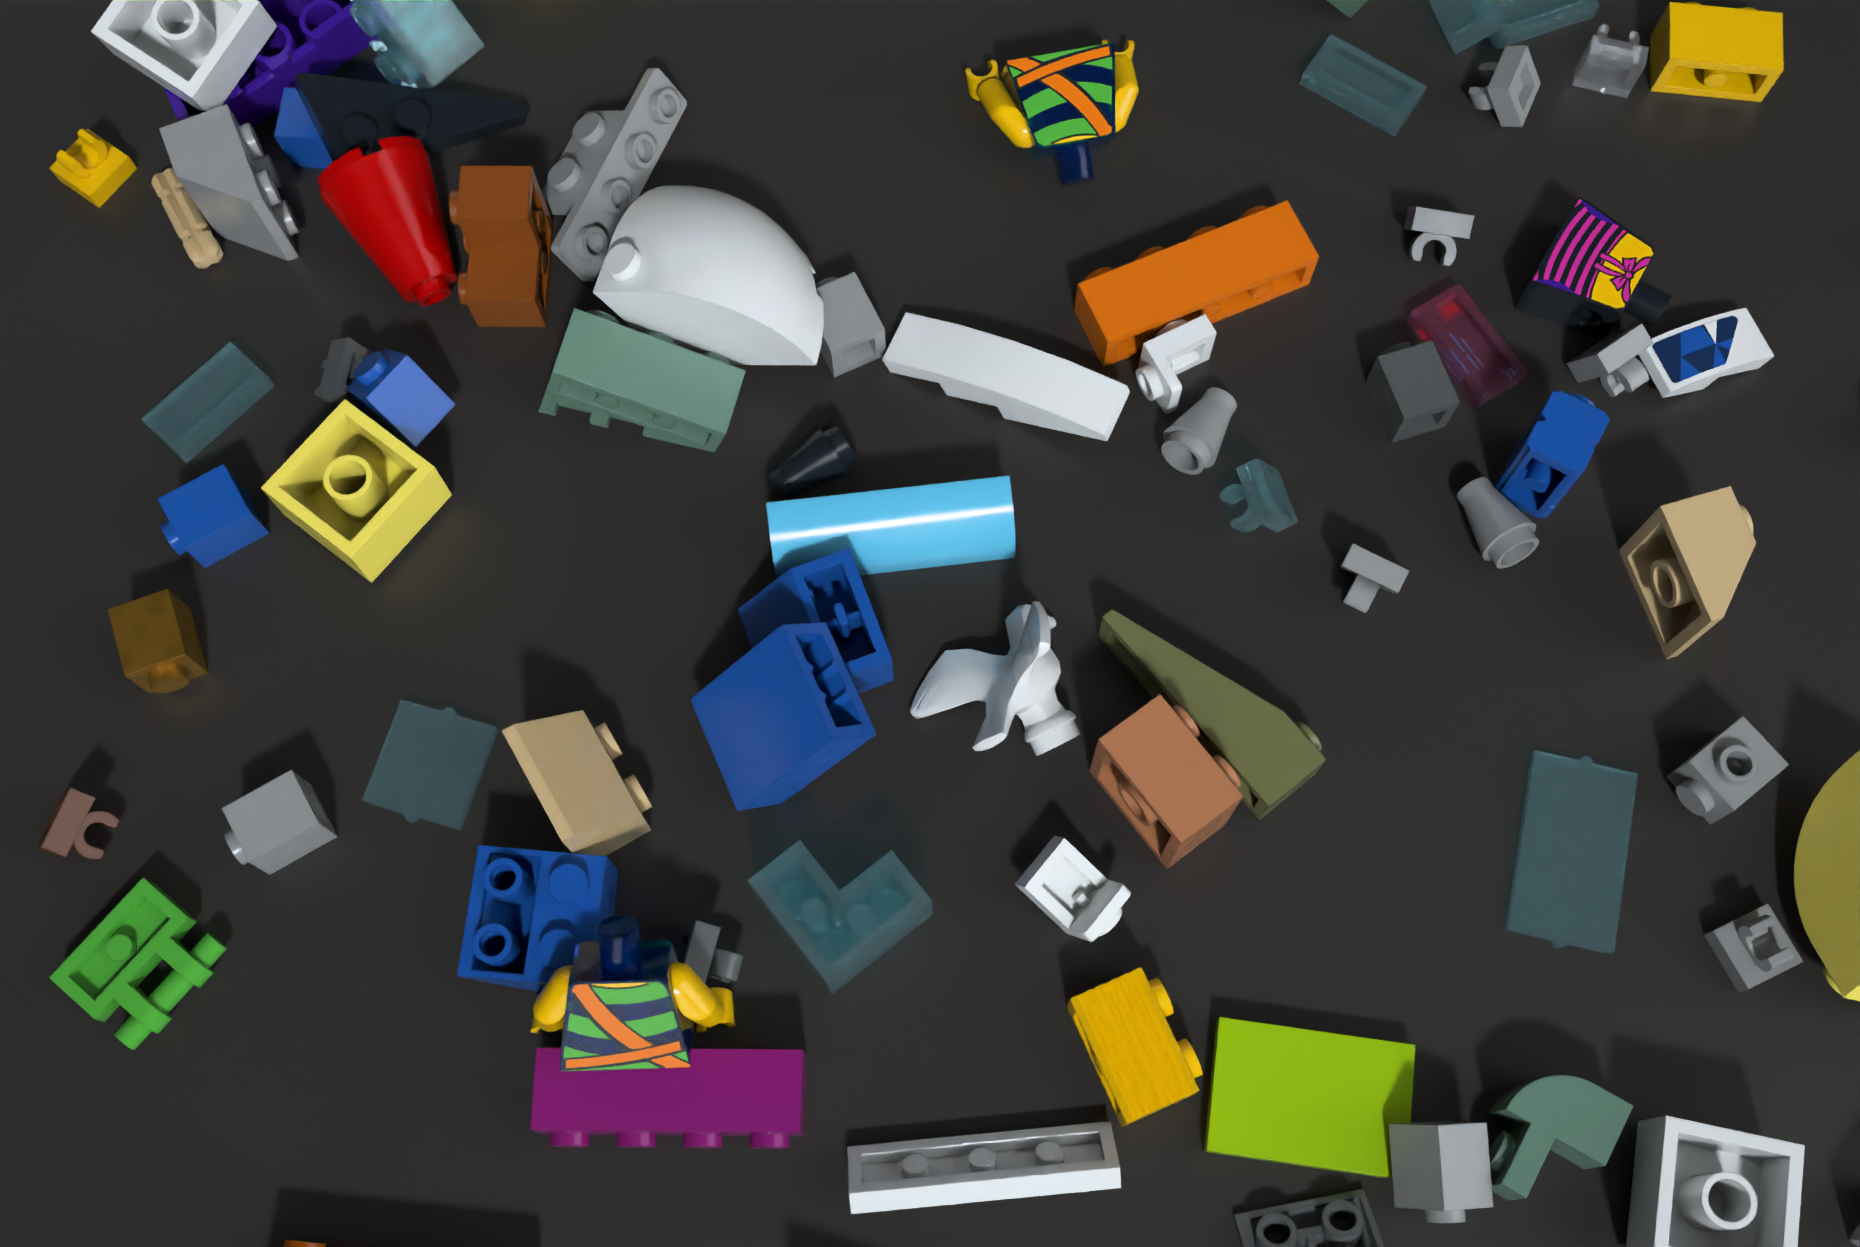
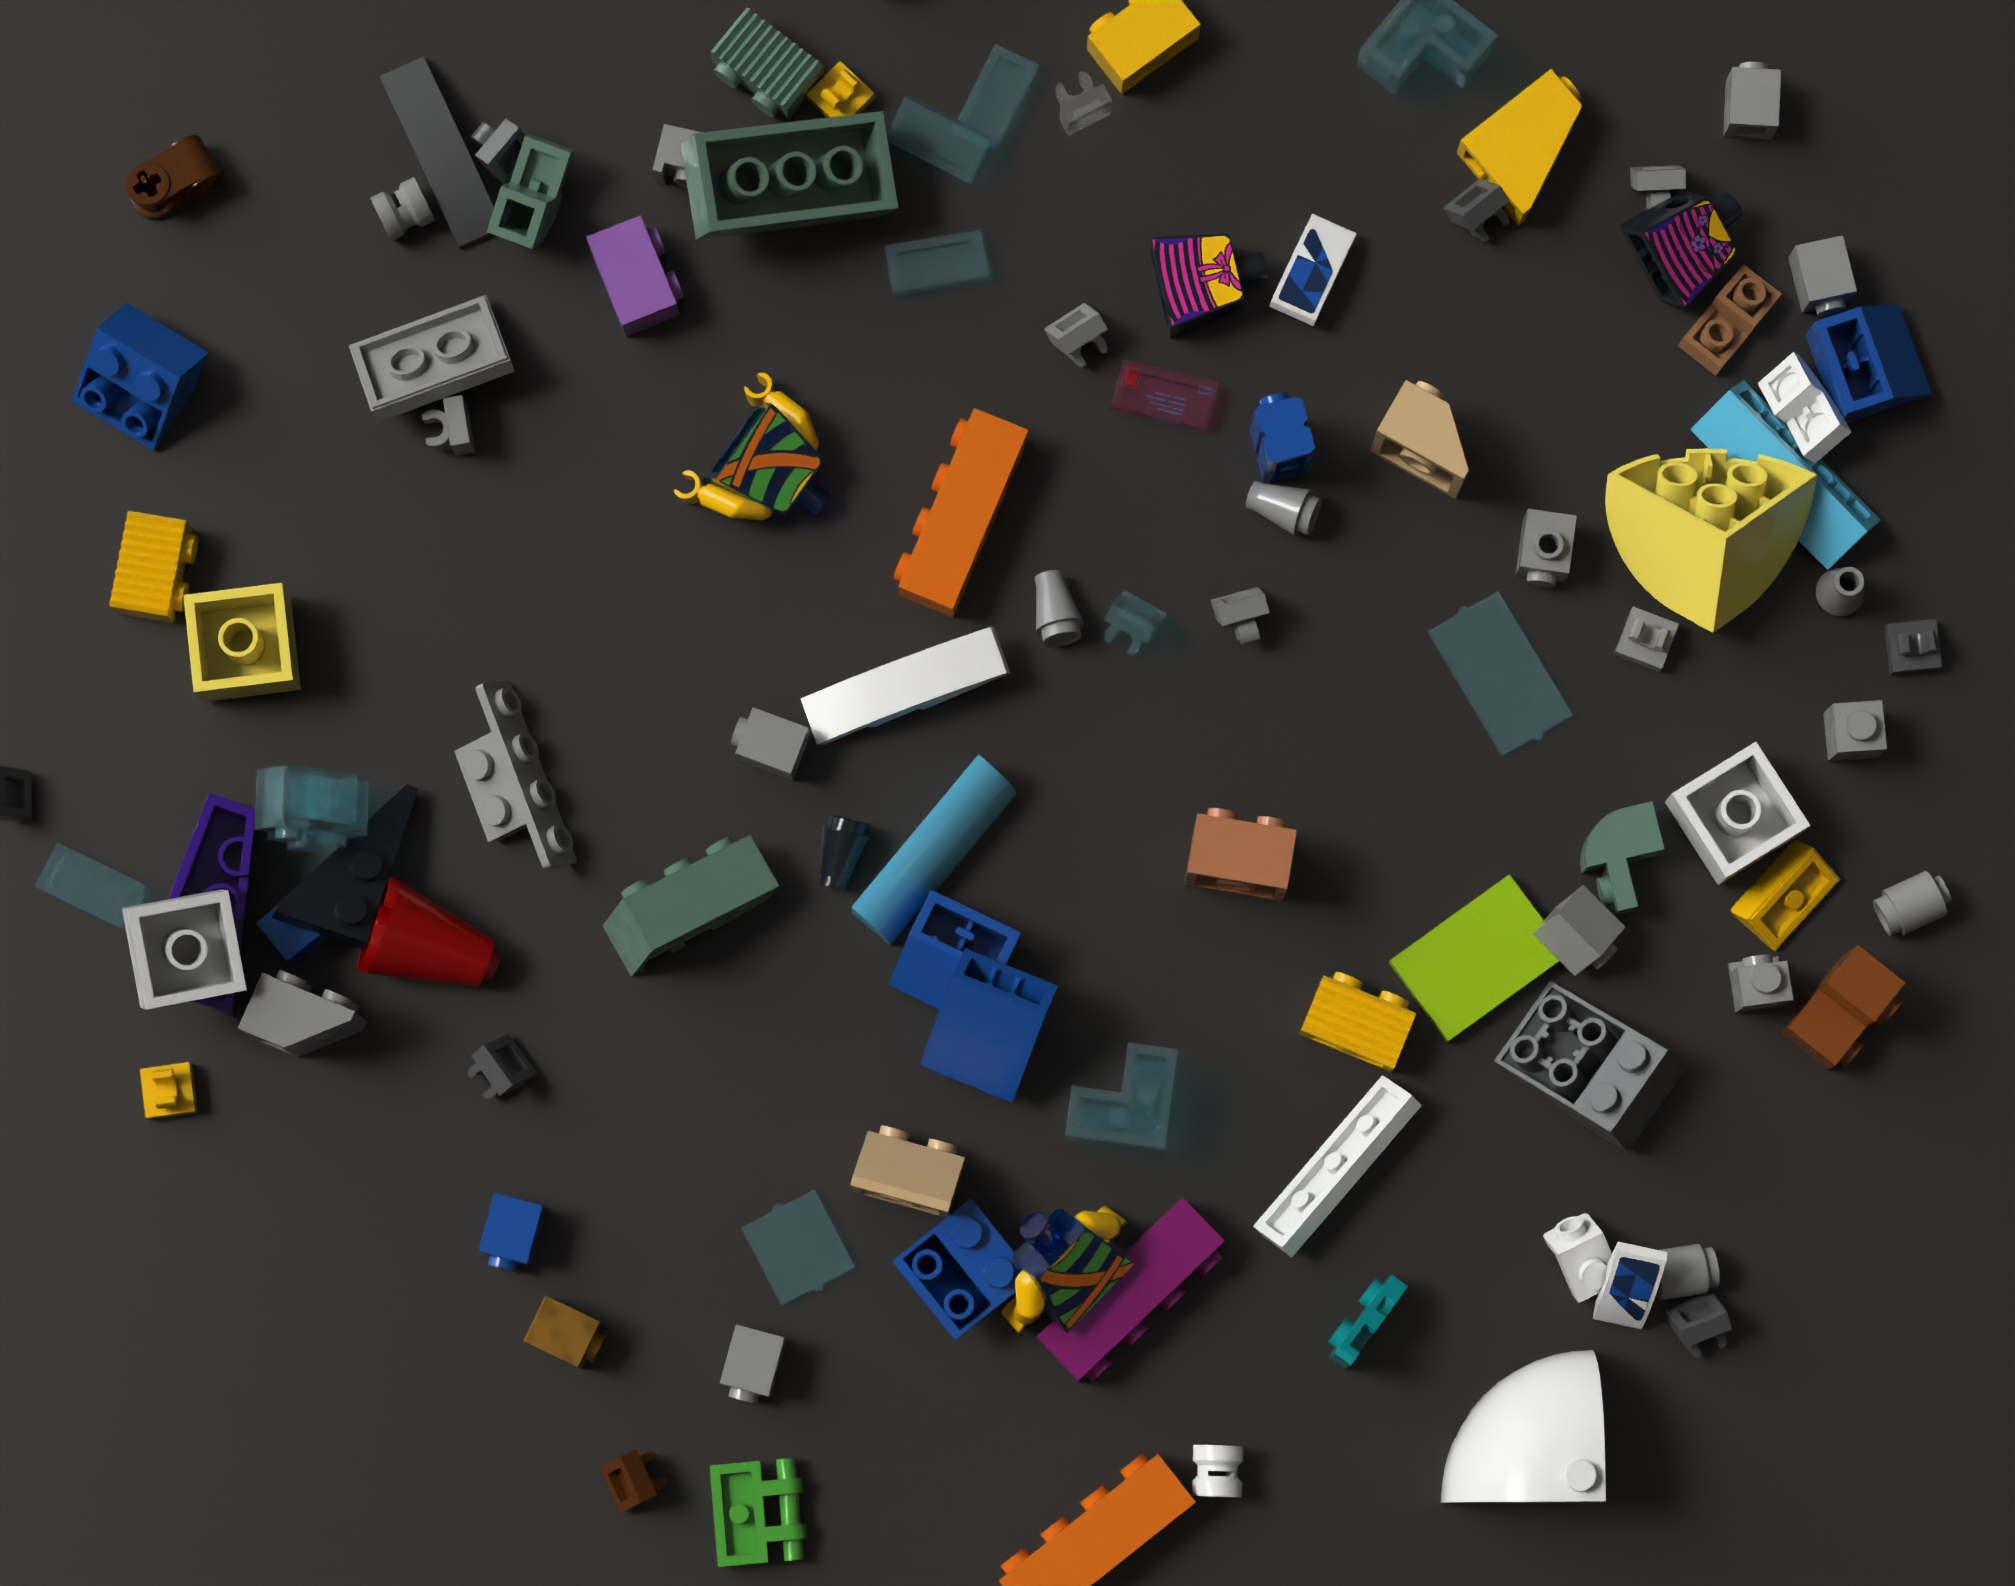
camera: 45 degrees left, 10 degrees up
(187, 220) = (271, 1065): tan axle -> none
(208, 402) = (419, 1166): clear light blue tile -> none
(357, 490) = (590, 1131): light yellow brick -> none
(399, 395) = (551, 1050): brick -> none
(507, 245) = (514, 893): dark orange brick -> none
(698, 950) = (1071, 1198): dark grey tile -> none
(713, 278) = (677, 790): white brick -> none
(1009, 684) = (1093, 879): white animal -> none
(1073, 891) = (1244, 966): white bracket -> none
(1170, 353) = (991, 567): white bracket -> none
(1249, 733) = (1252, 784): olive slope -> none
(1411, 390) = (1158, 463): dark grey brick -> none
(1510, 86) = (1036, 183): light grey tile -> none
(1614, 361) = (1262, 329): light grey tile -> none

